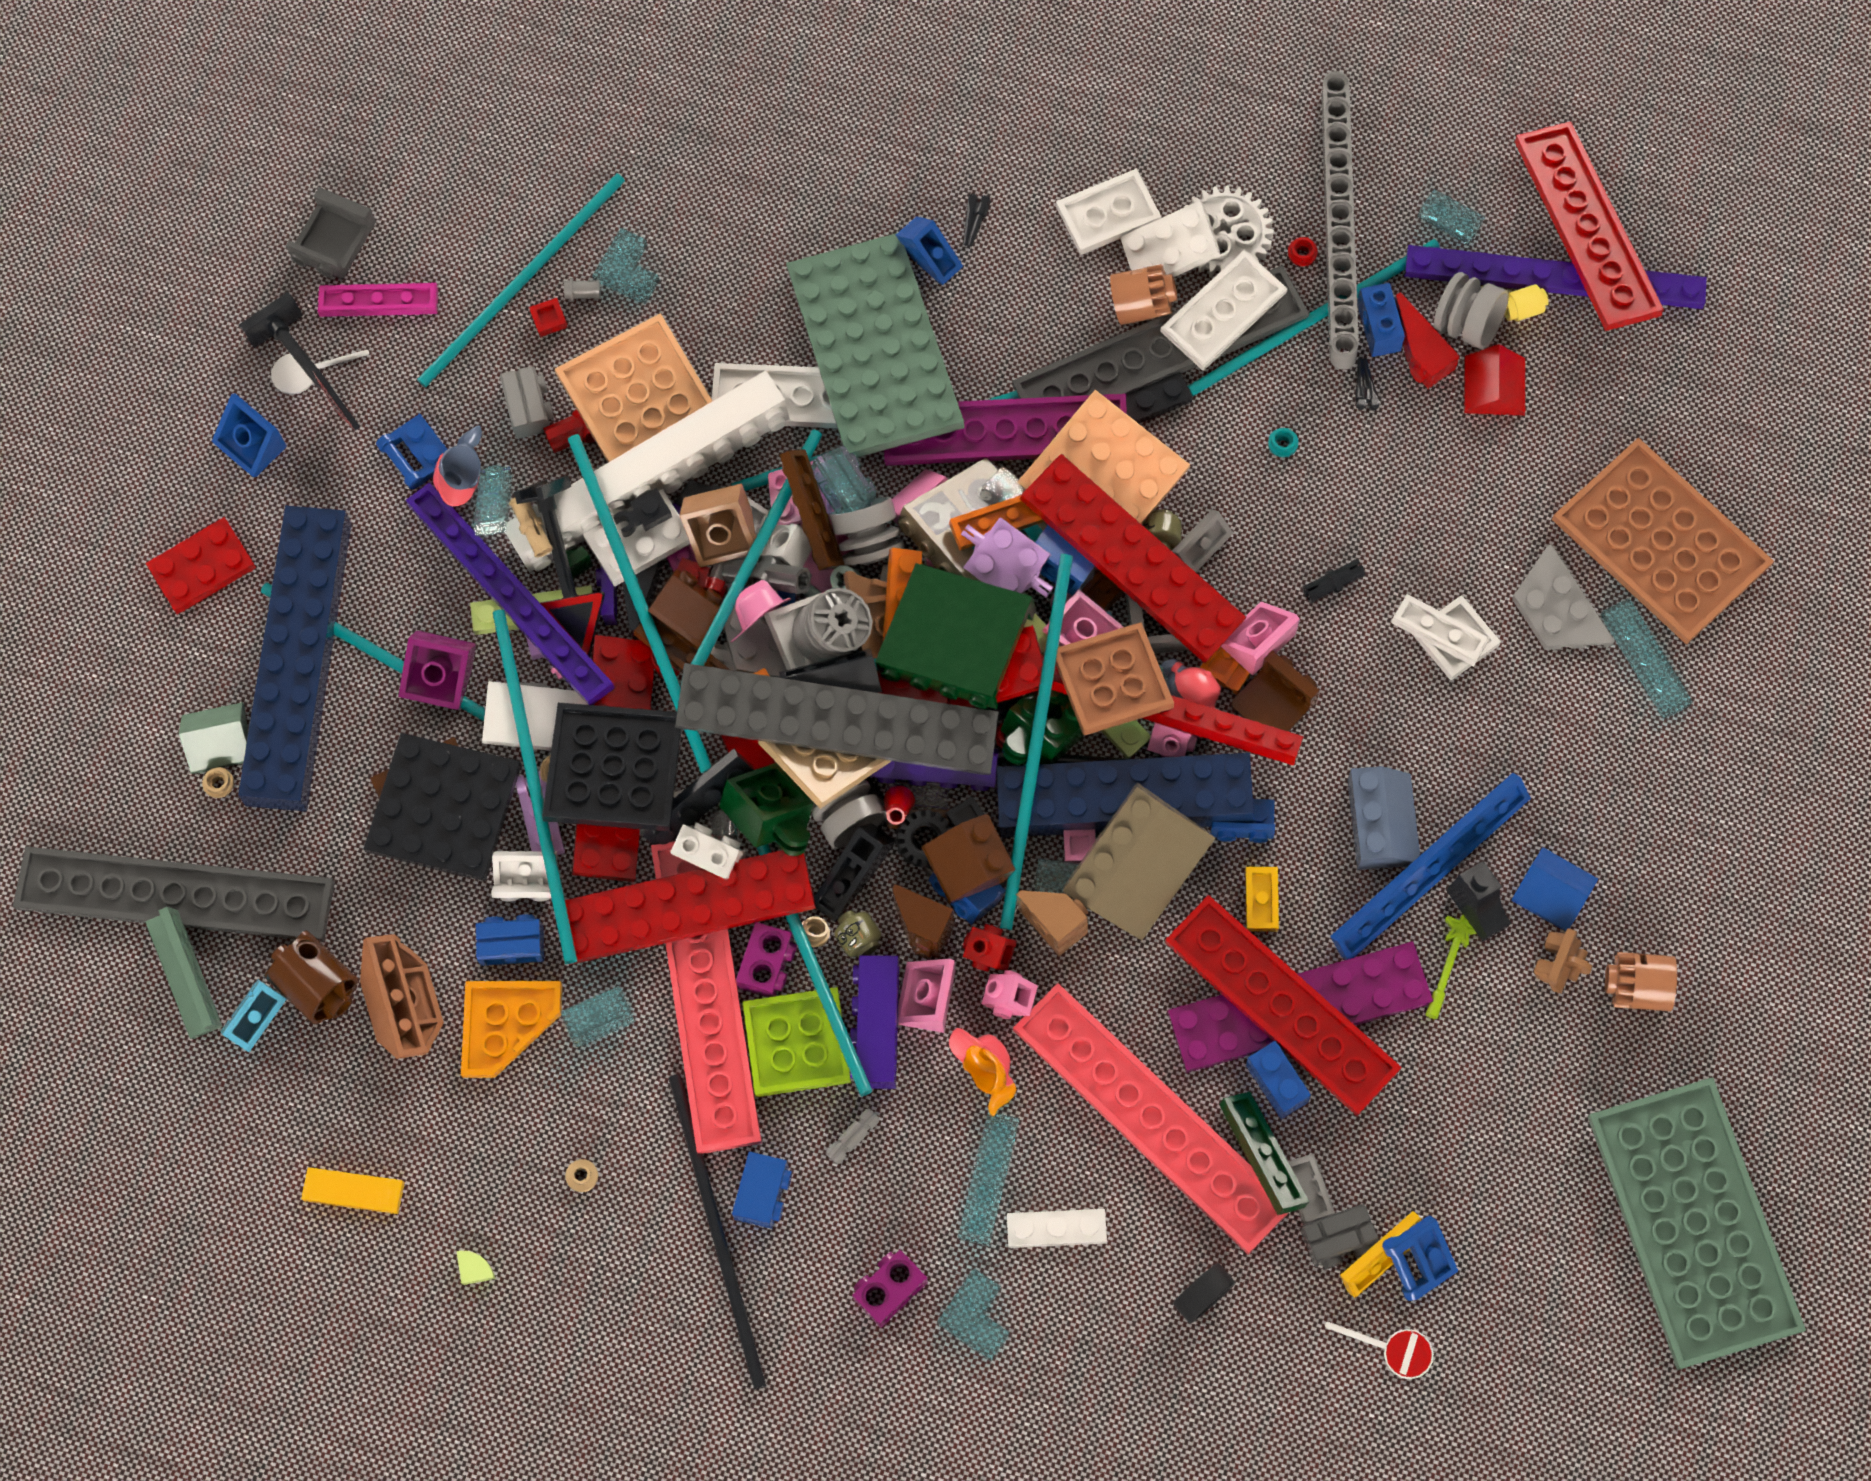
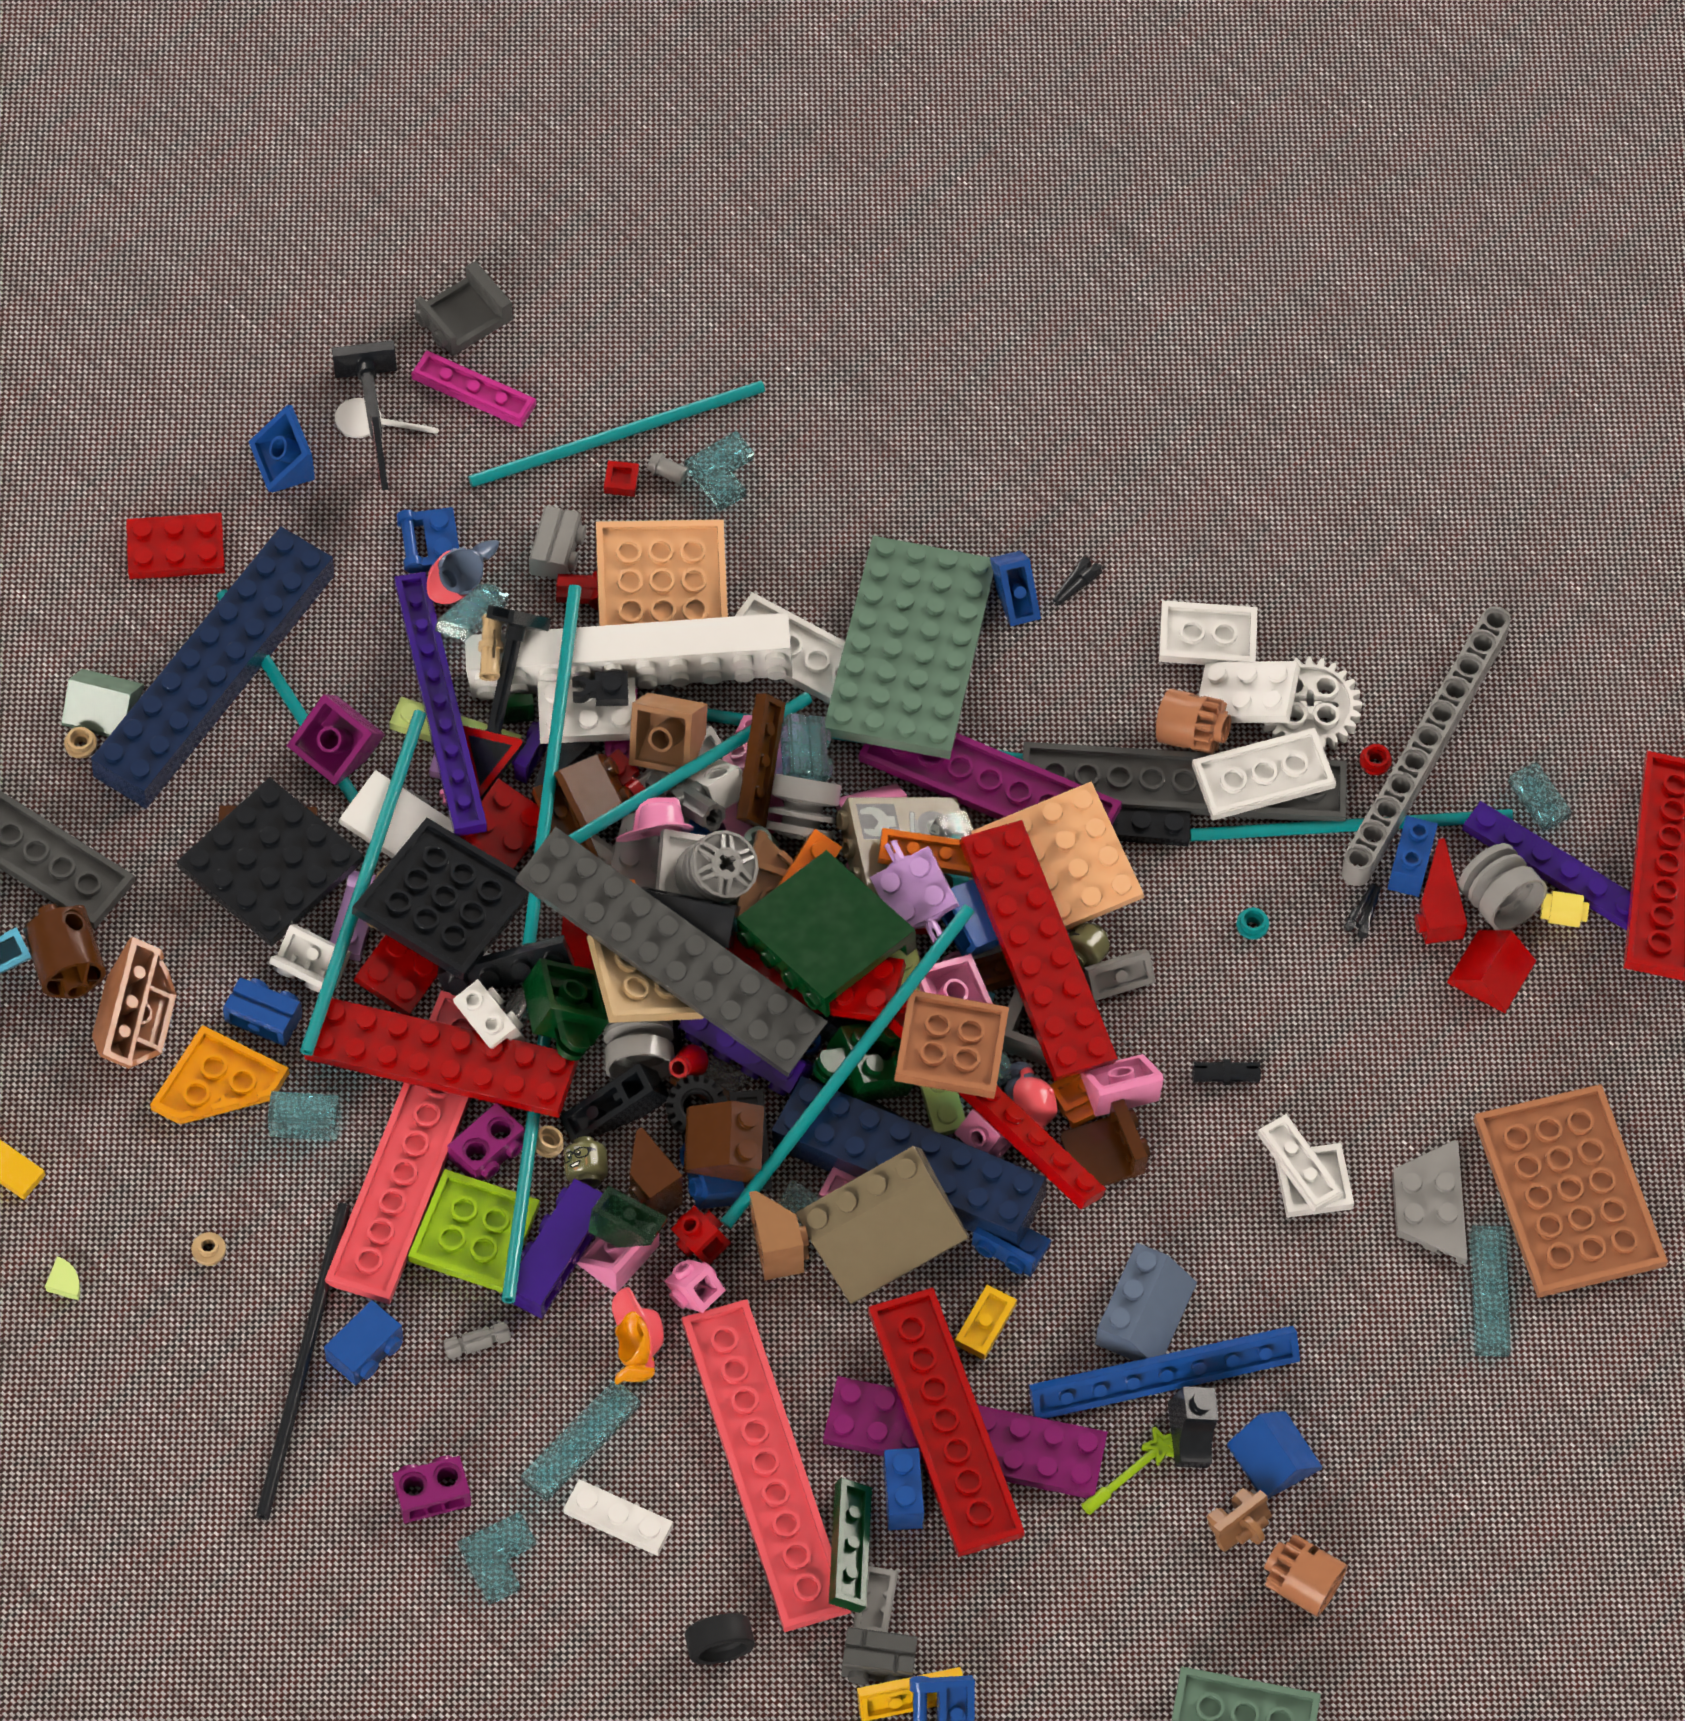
camera: 20 degrees right, 10 degrees down
(927, 973) = (624, 1220): none -> clear green slope

